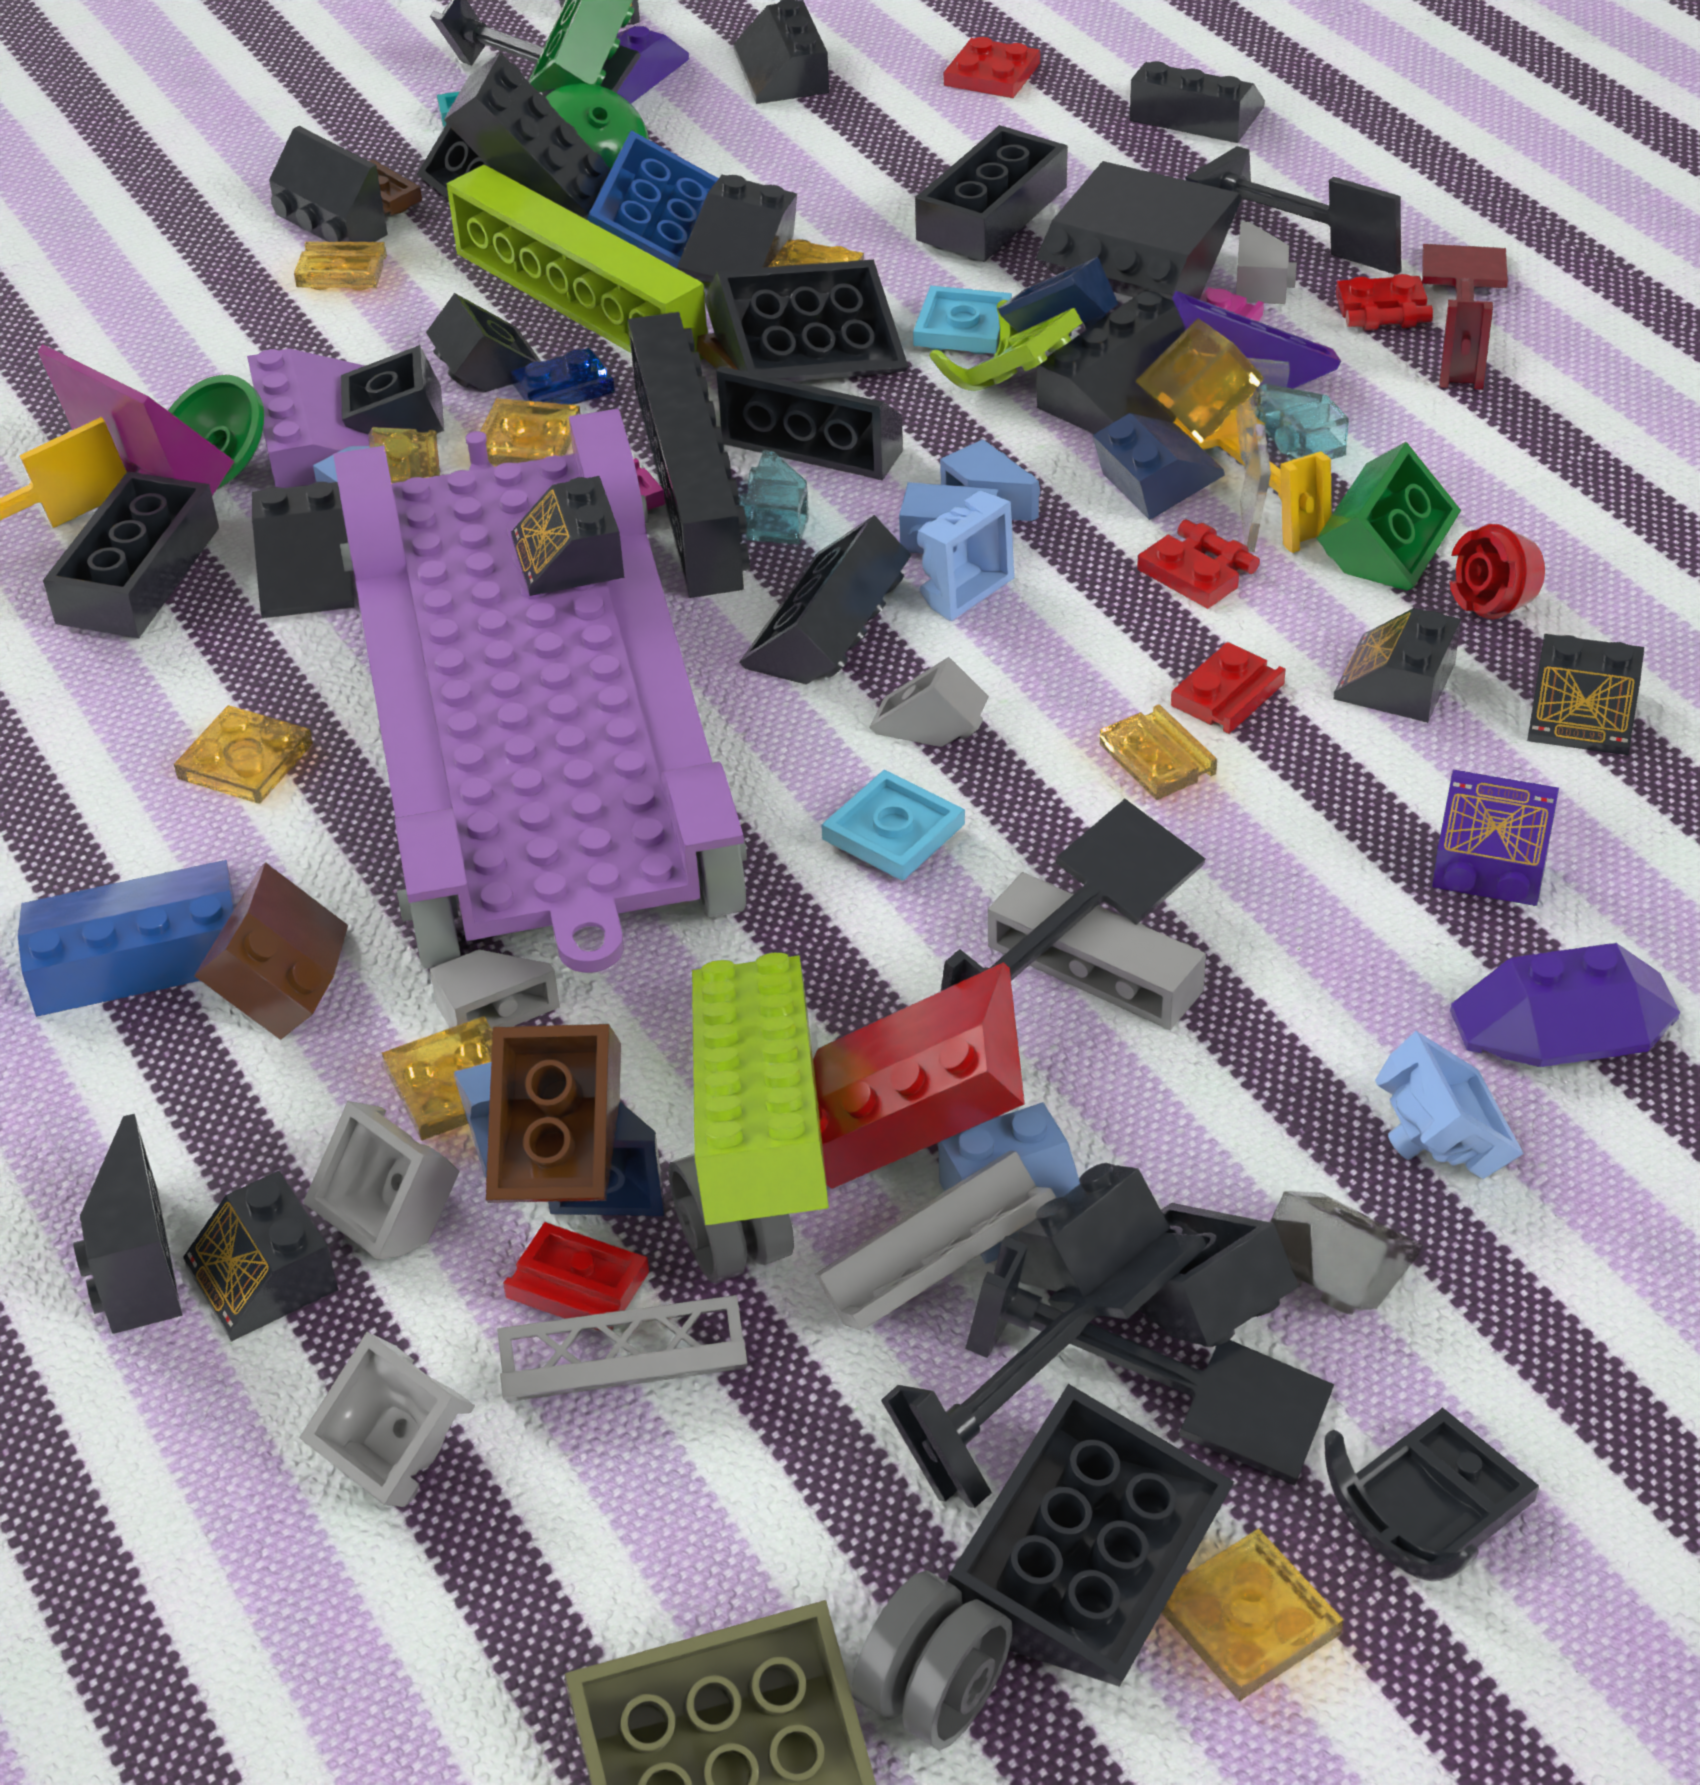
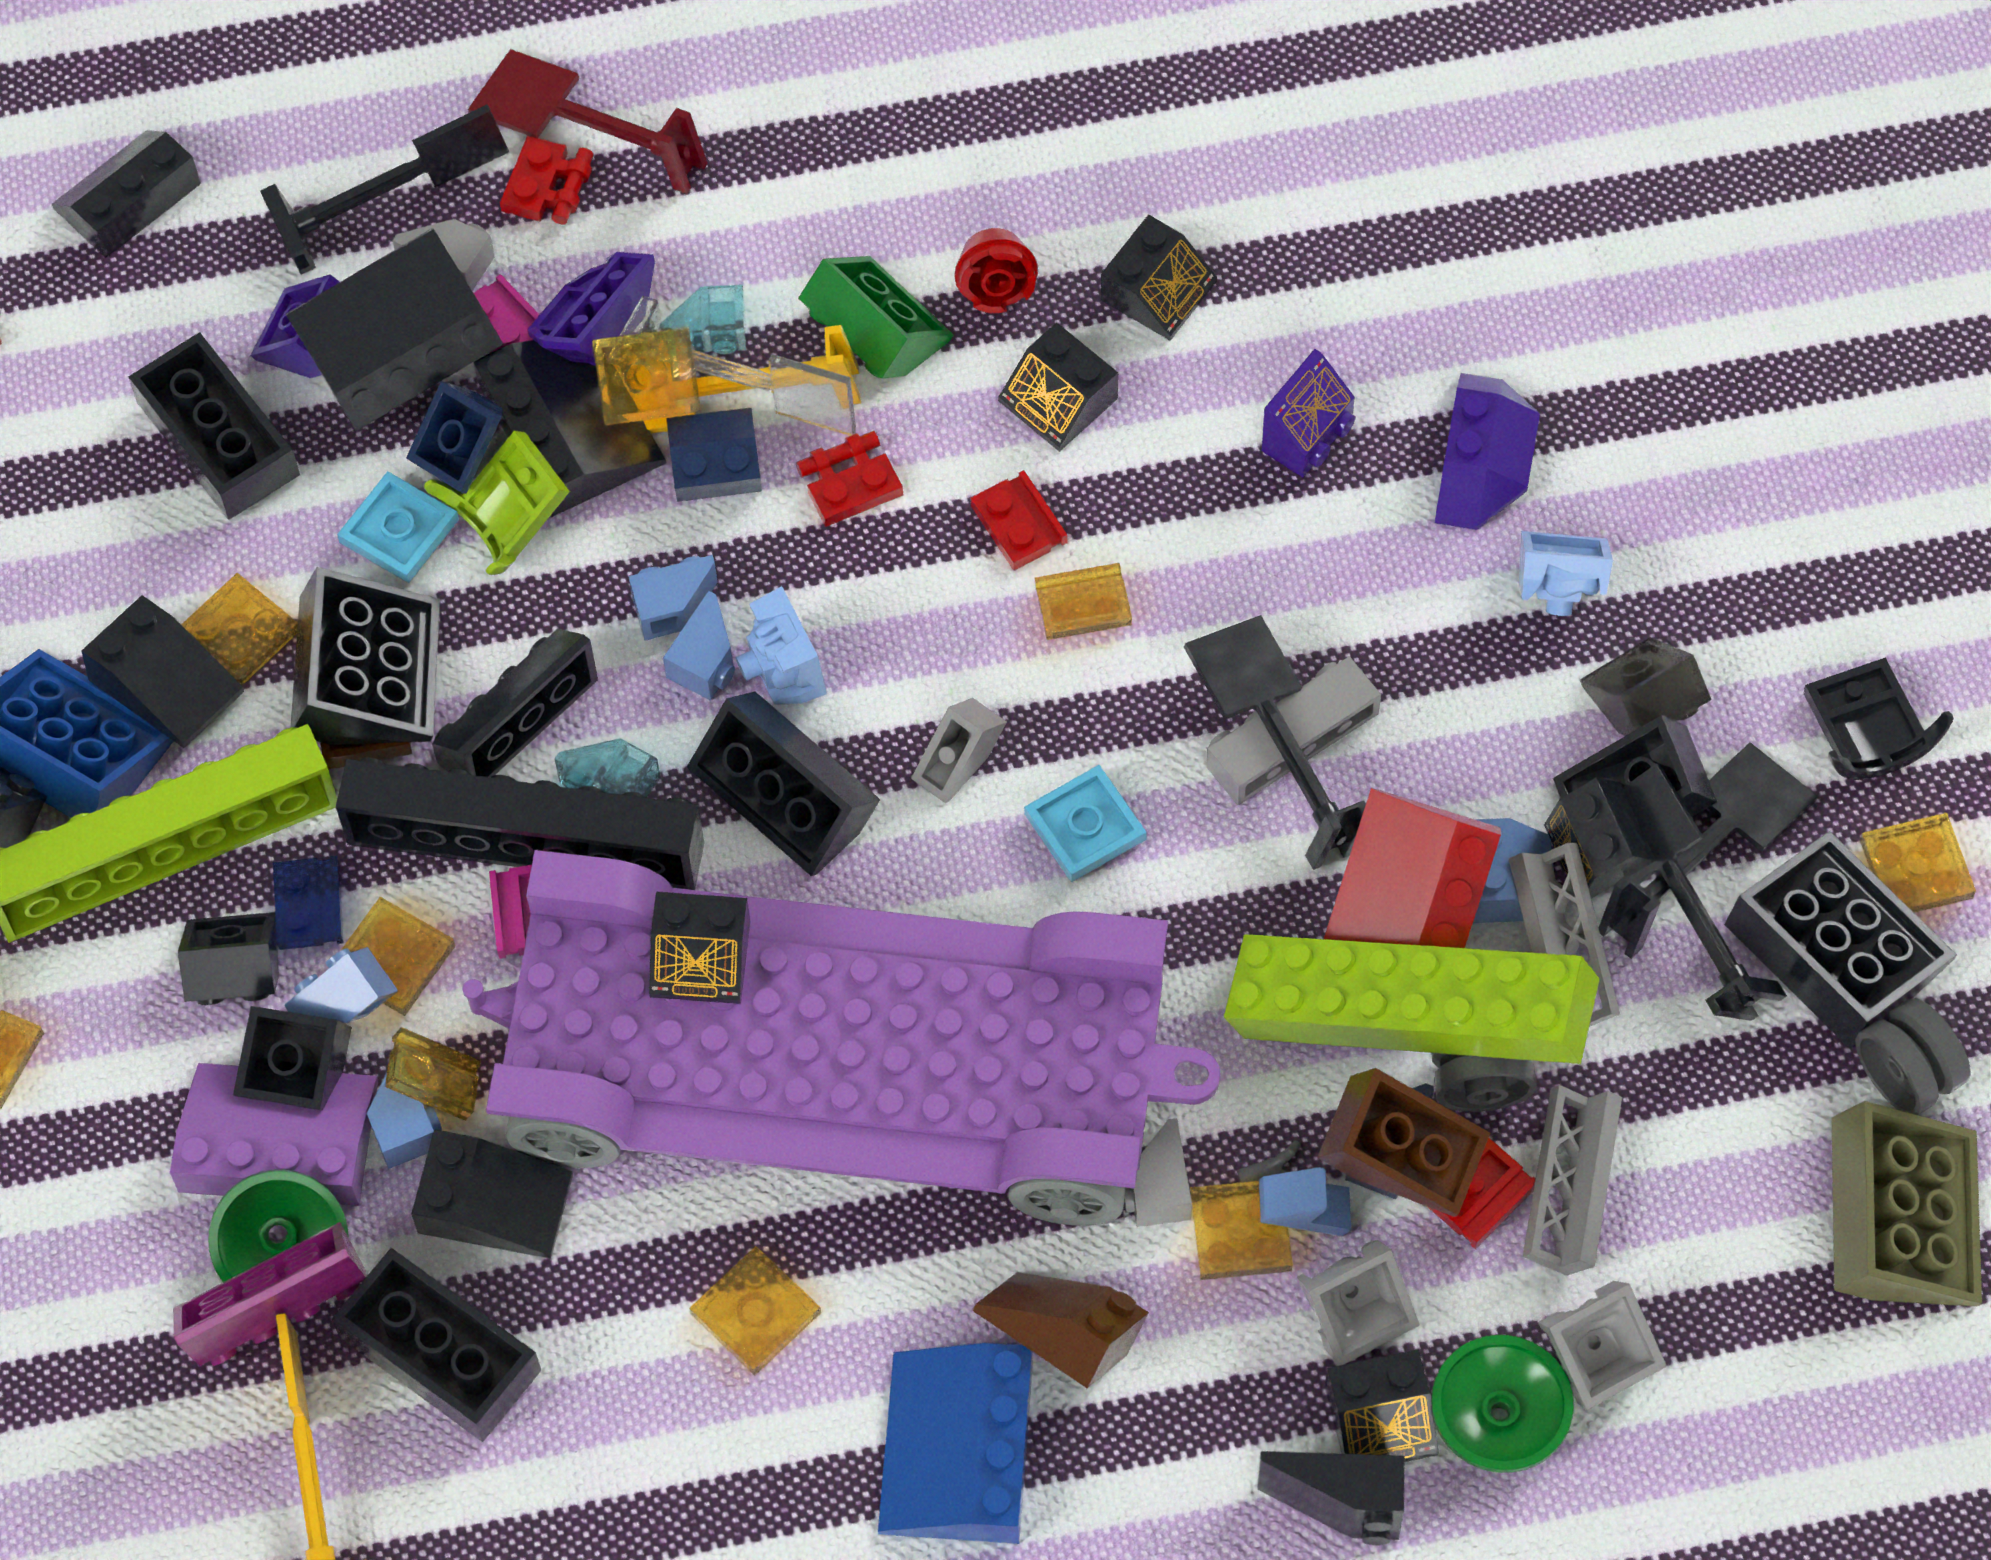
camera: 70 degrees left, 20 degrees up
(275, 1336) = (1508, 1376): none -> green dish
(471, 401) = (346, 990): none -> medium blue slope

